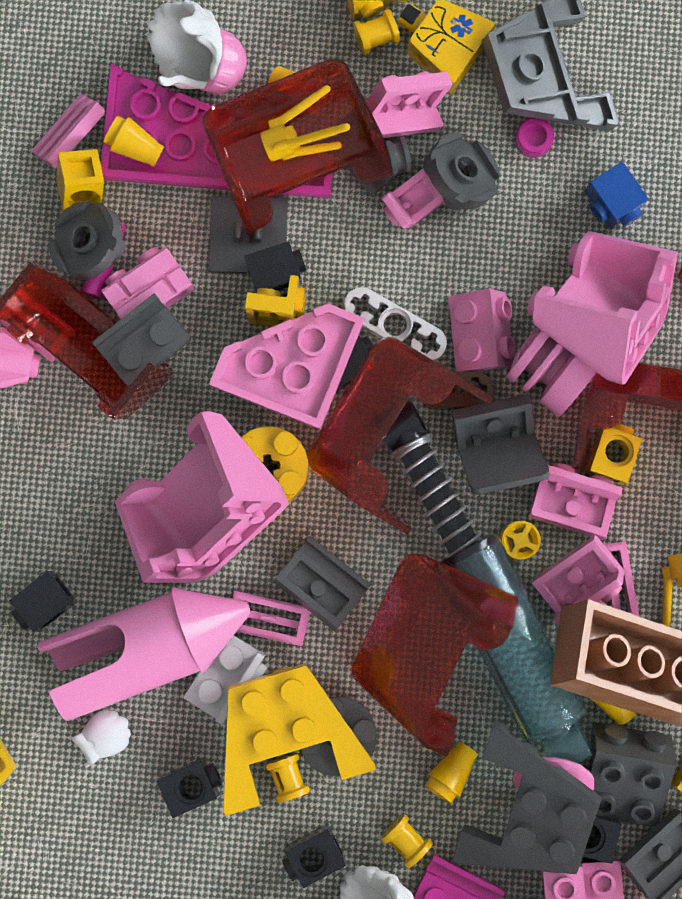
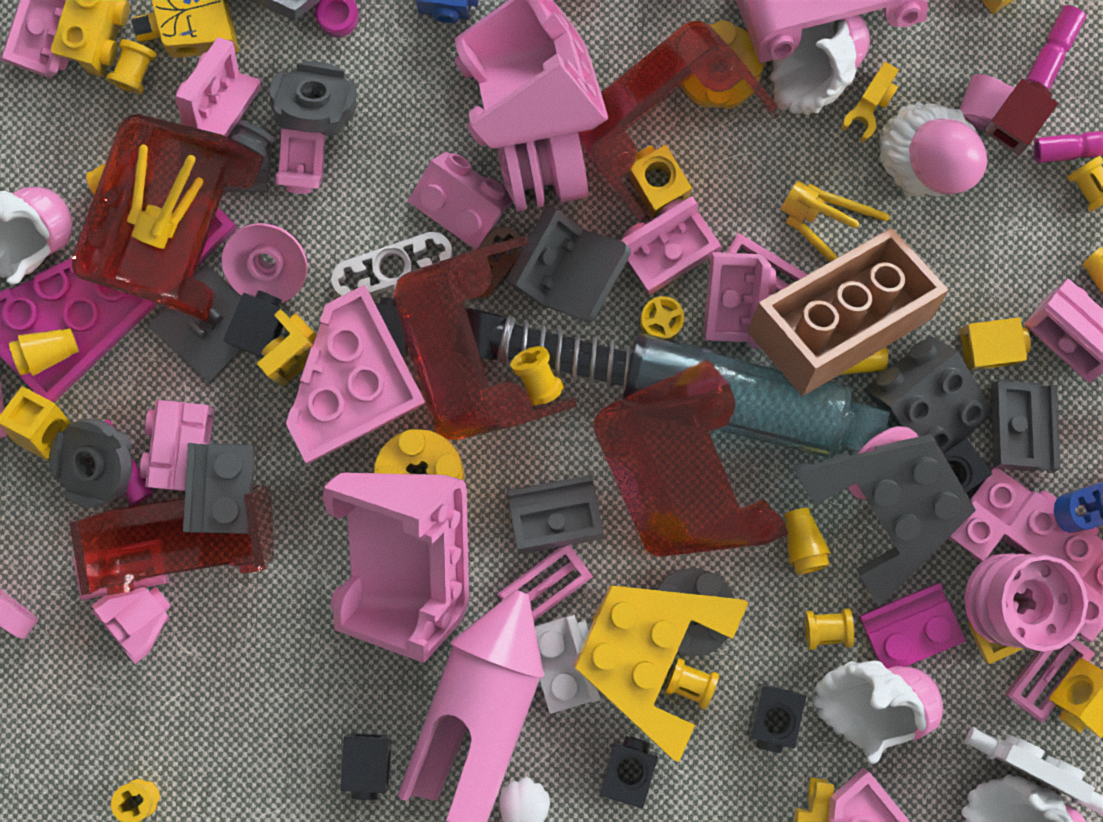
camera: 45 degrees left, 0 degrees up
(307, 232) = (250, 272): none -> bright pink dish
(404, 489) = (537, 375): none -> yellow bush

